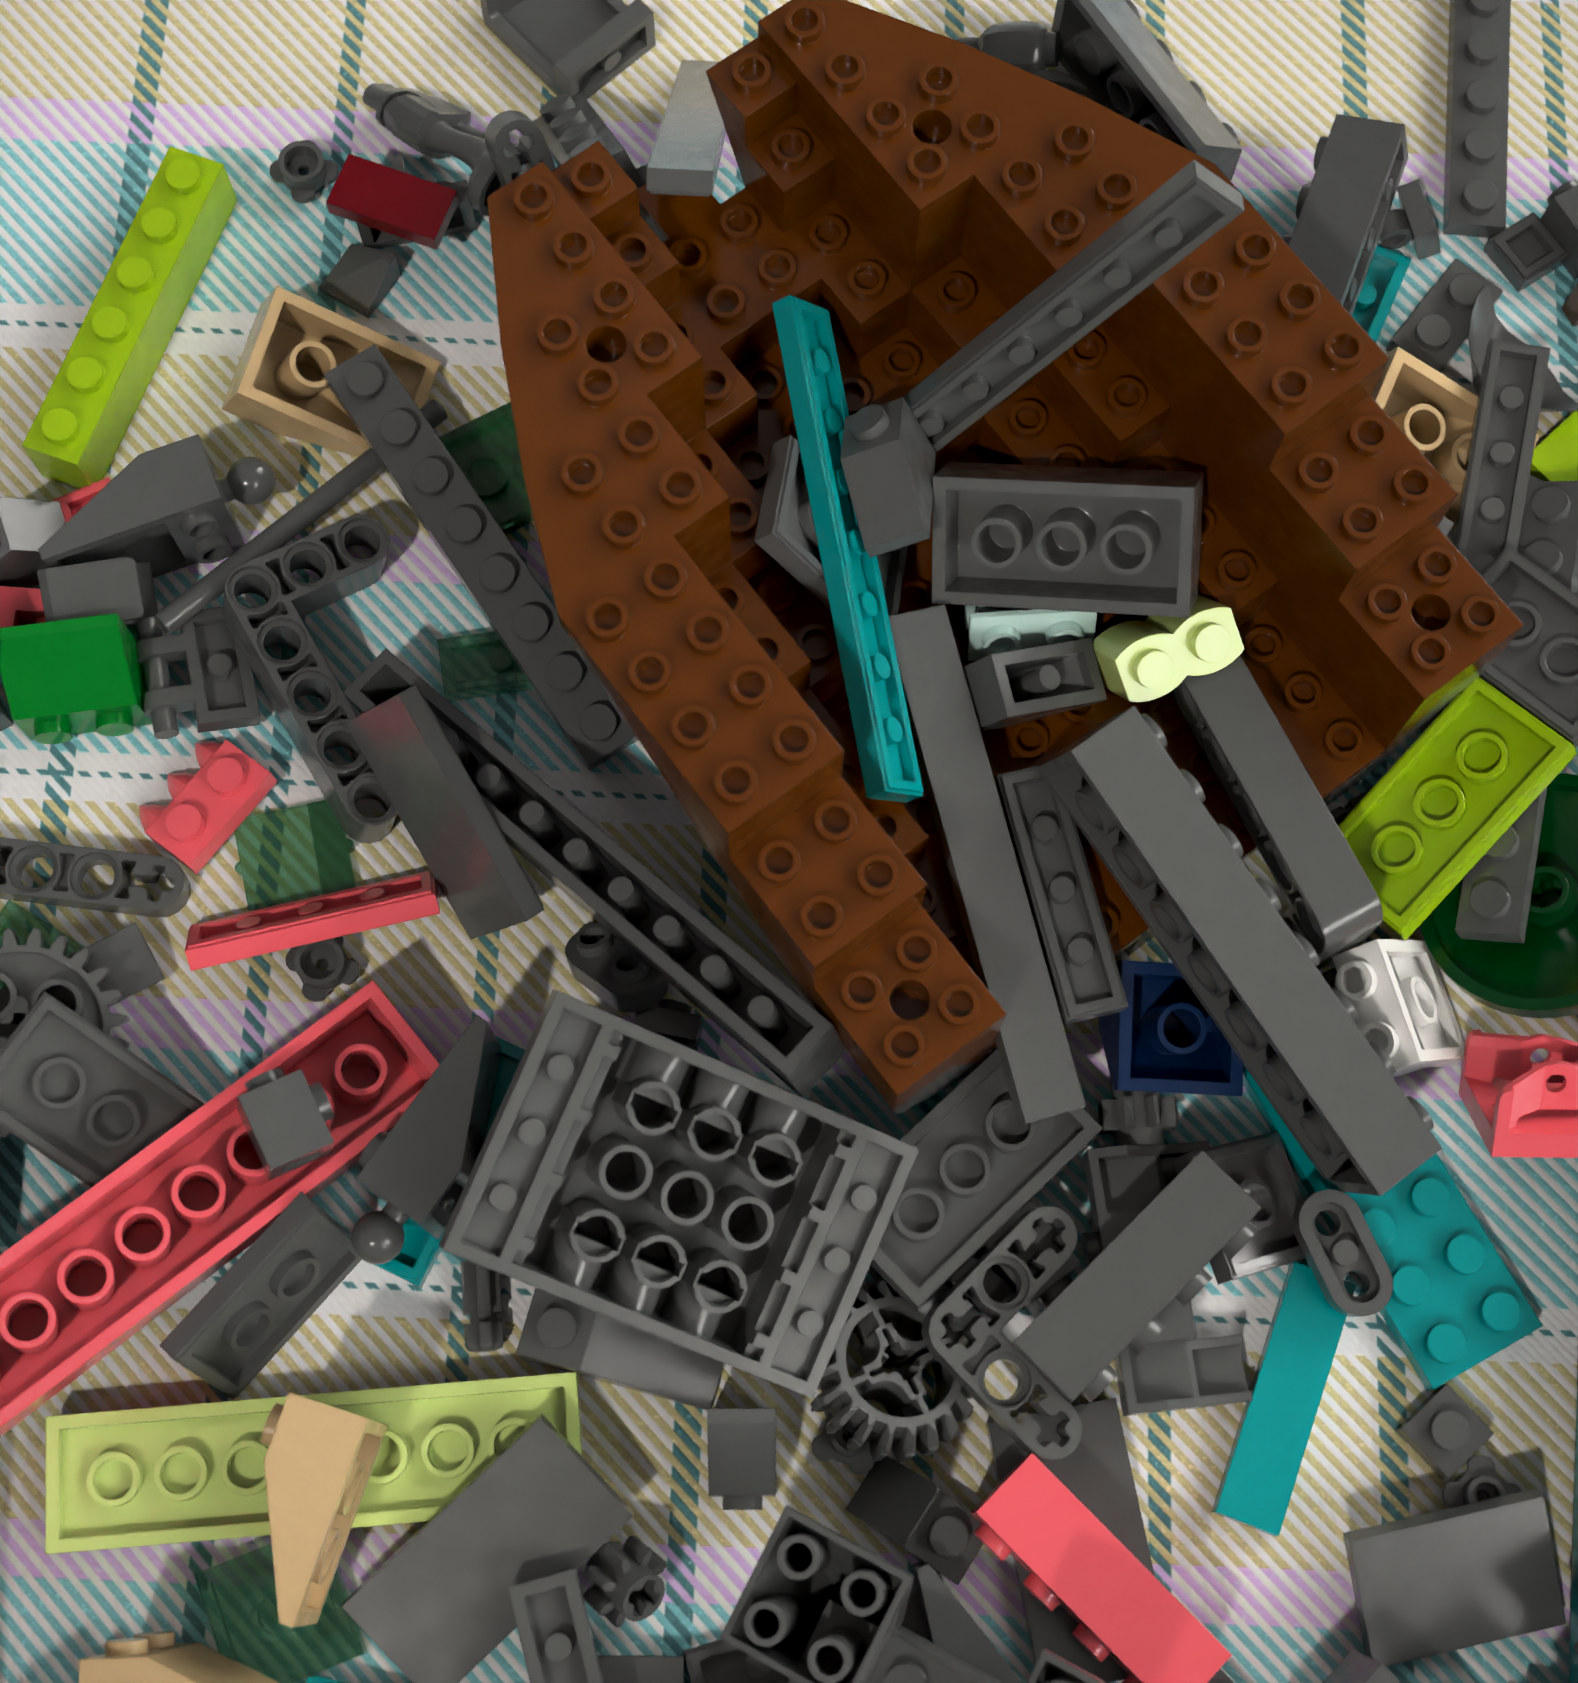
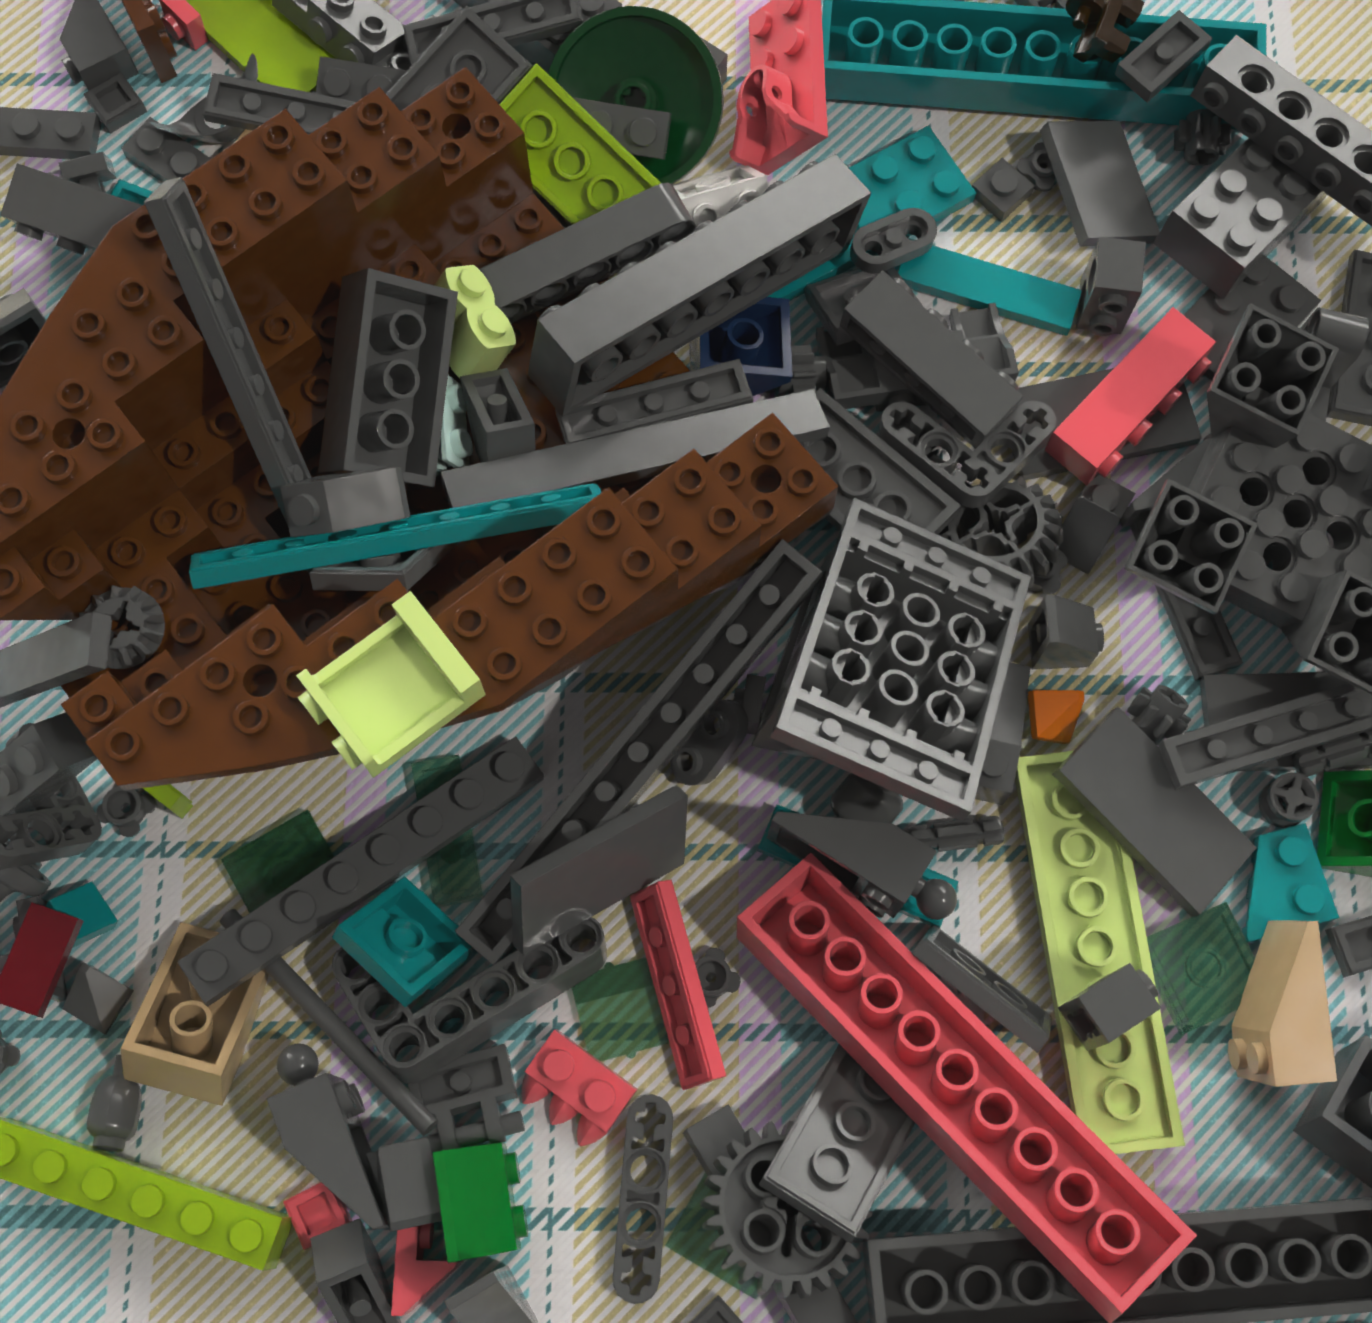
camera: 90 degrees left, 0 degrees up
(211, 1451) = (1111, 1006): none -> dark grey brick
(224, 298) = (114, 1111): none -> dark grey plant
(286, 1120) = (863, 962): dark grey brick -> none
(314, 1488) = (1119, 923): tan slope -> none
(382, 592) = (404, 941): none -> teal plate
(458, 258) = (88, 906): none -> teal tile
(572, 477) = (391, 689): none -> yellowish green panel
(635, 1433) = (1054, 714): none -> orange slope
(739, 247) = (142, 612): none -> dark grey gear
(1272, 1568) = (1111, 285): none -> dark grey brick

